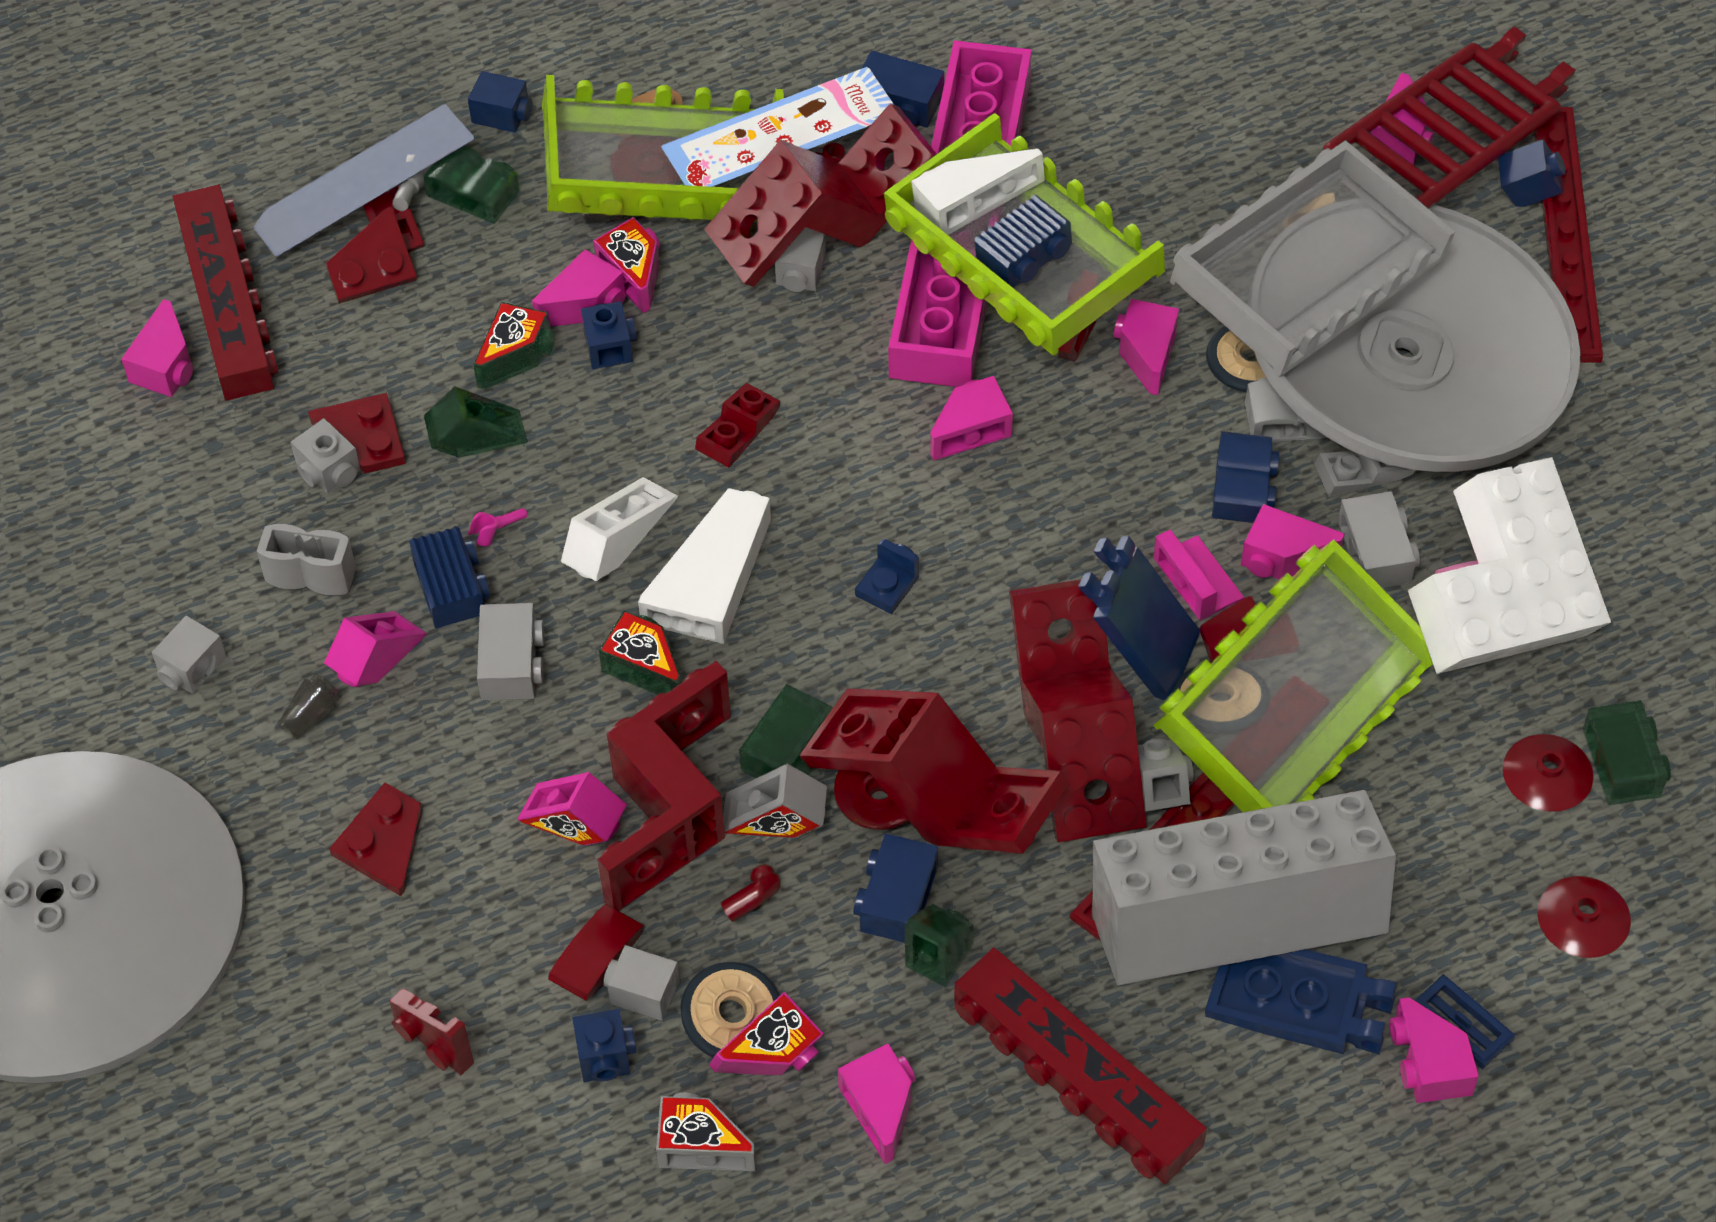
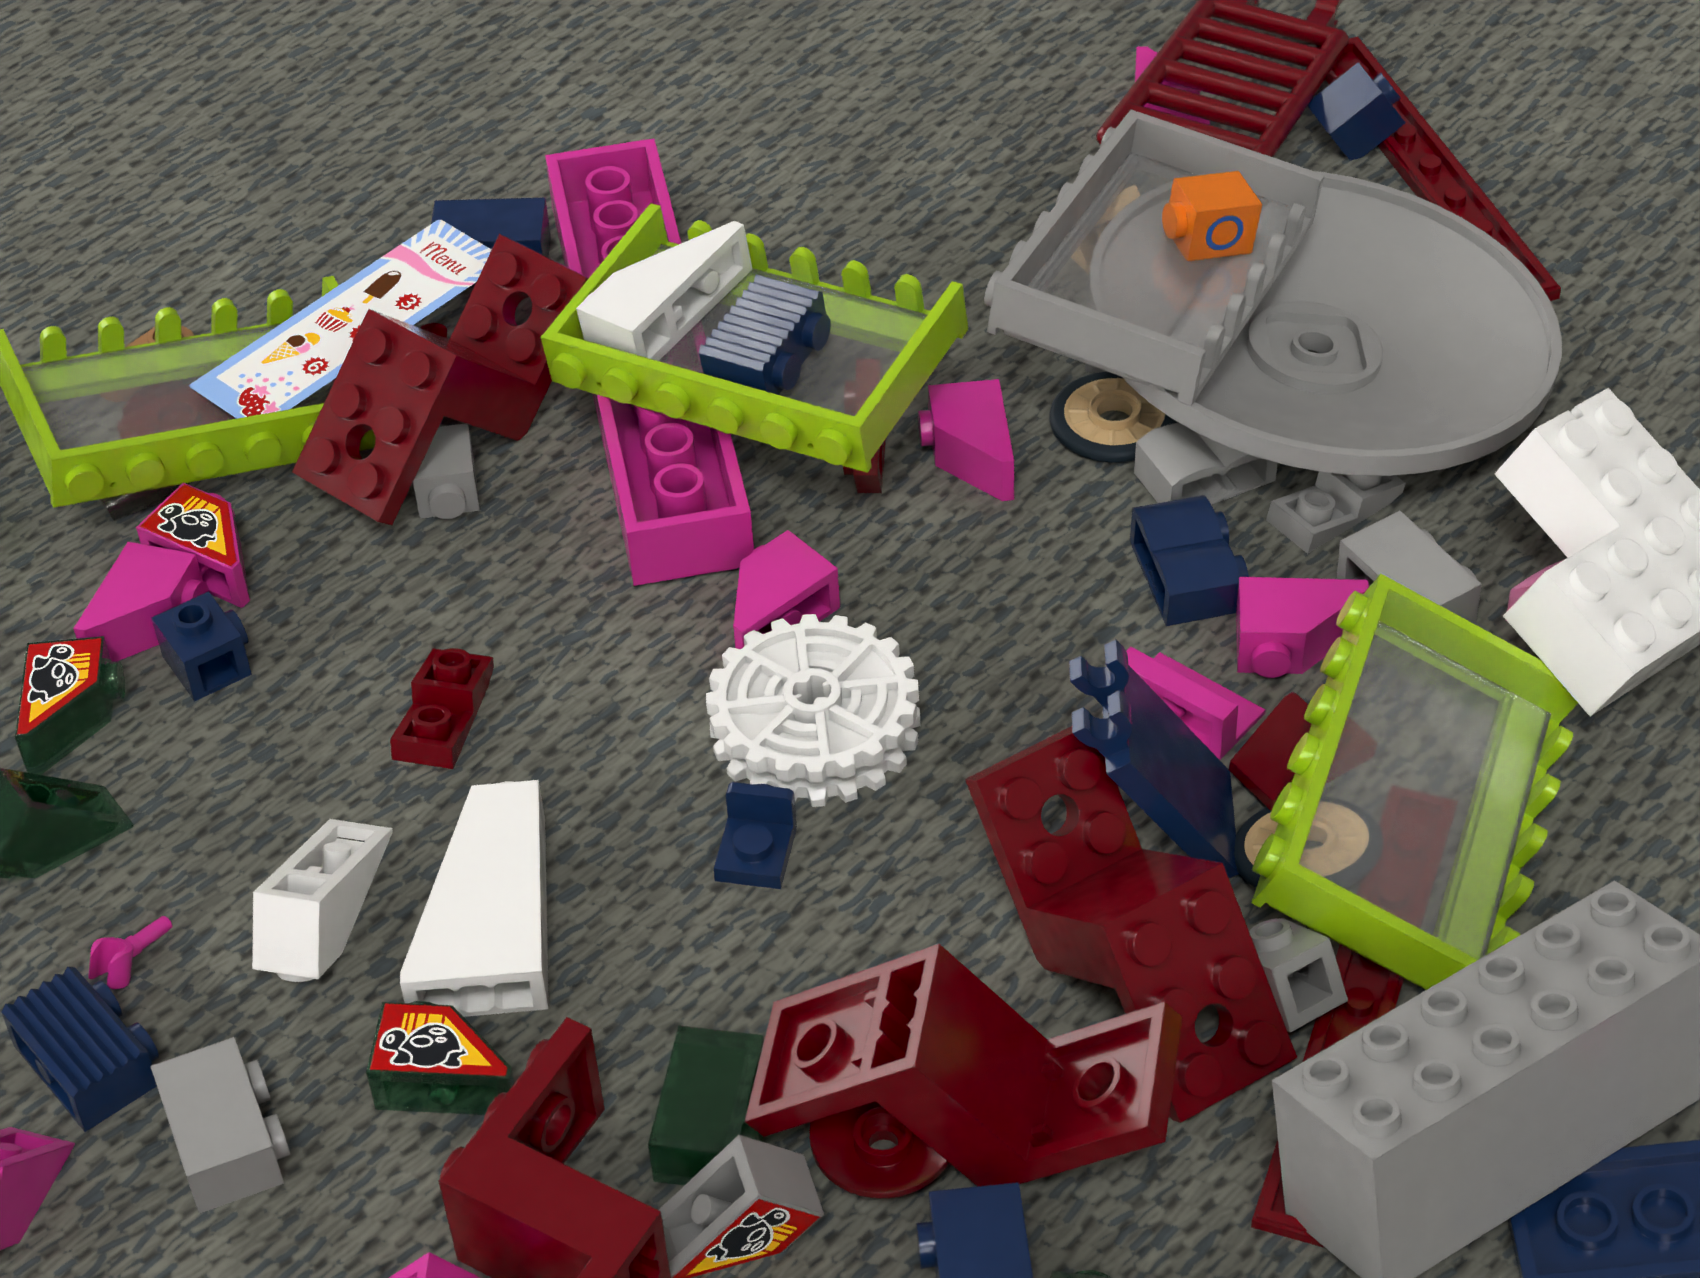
camera: 20 degrees left, 10 degrees down
(960, 503) = (814, 708): none -> white piece
(1359, 241) = (1212, 215): none -> orange brick

